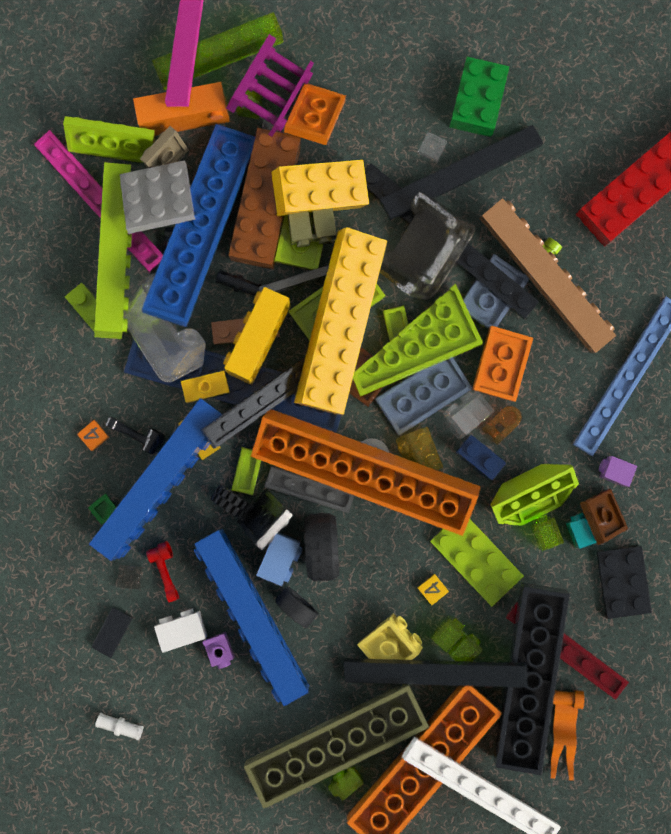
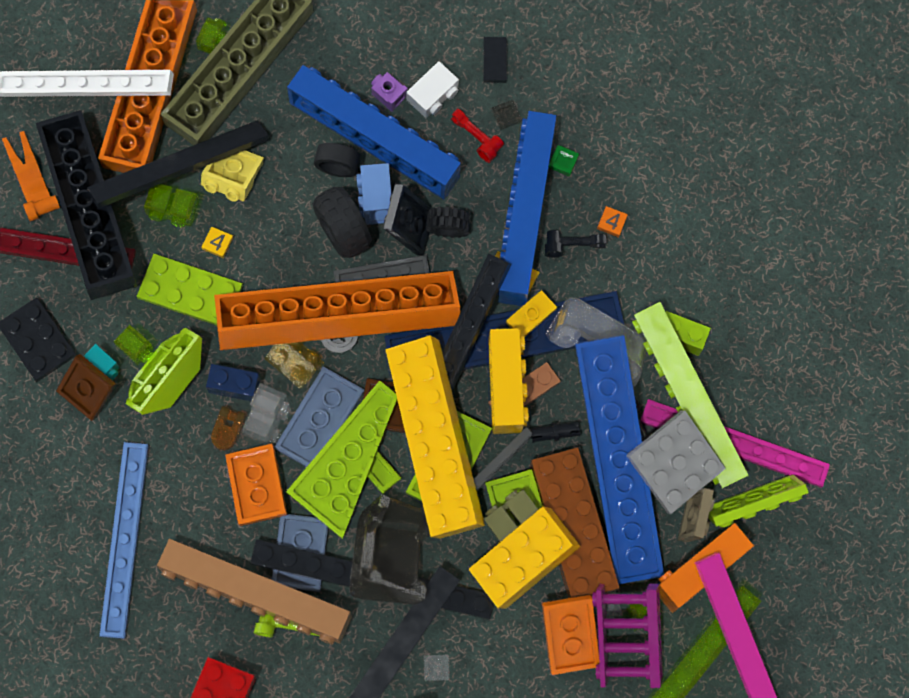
camera: 145 degrees right, 10 degrees down
(246, 472) = (449, 258): lime tile -> none
(617, 471) = (92, 438): medium lavender brick -> none

